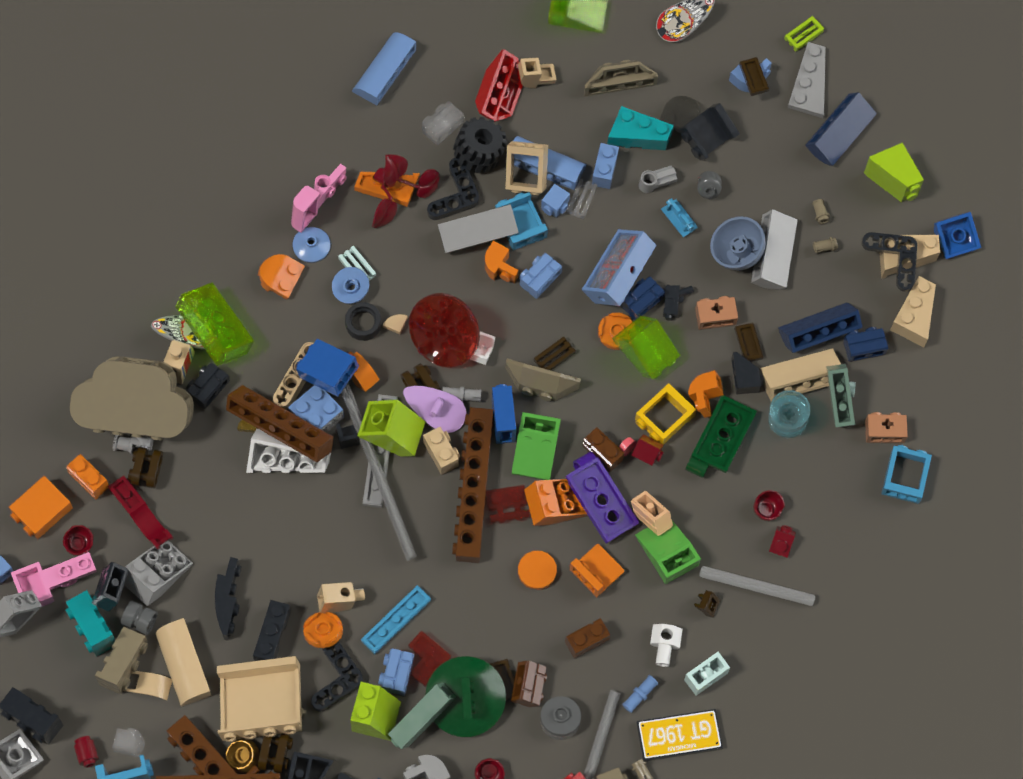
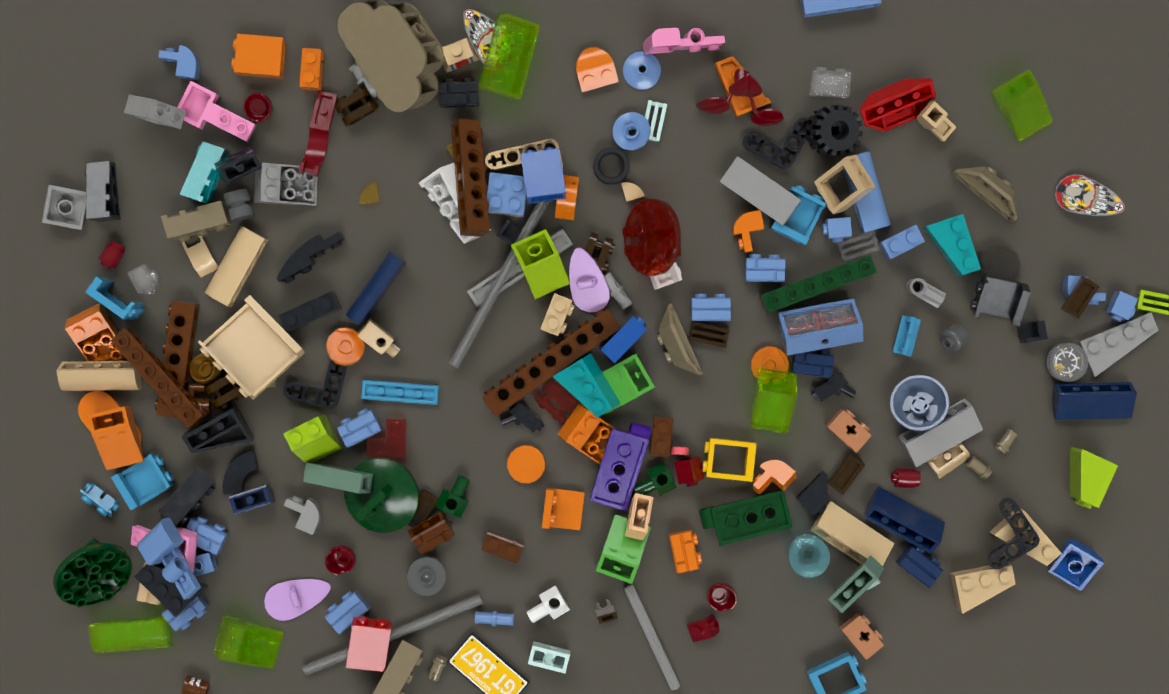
camera: 50 degrees right, 20 degrees up
(222, 515) = (370, 194): none -> clear yellow tile
(298, 567) = (375, 289): none -> dark blue brick
(496, 541) = (522, 414): none -> black piece
(515, 640) = (457, 494): none -> dark green piece
(516, 467) = (588, 385): none -> teal wedge
(536, 336) = (710, 308): none -> medium blue brick
(584, 247) = (818, 284): none -> dark green brick
(635, 486) = (651, 484): none -> dark green piece
(708, 505) = (684, 551): none -> orange brick
(752, 130) = (1032, 331): none -> black panel
(785, 57) = (1121, 306): none -> medium blue brick
(788, 301) = (906, 478): none -> dark red brick
(795, 124) = (1066, 362): none -> clear piece
(800, 262) = (949, 460): none -> tan slope

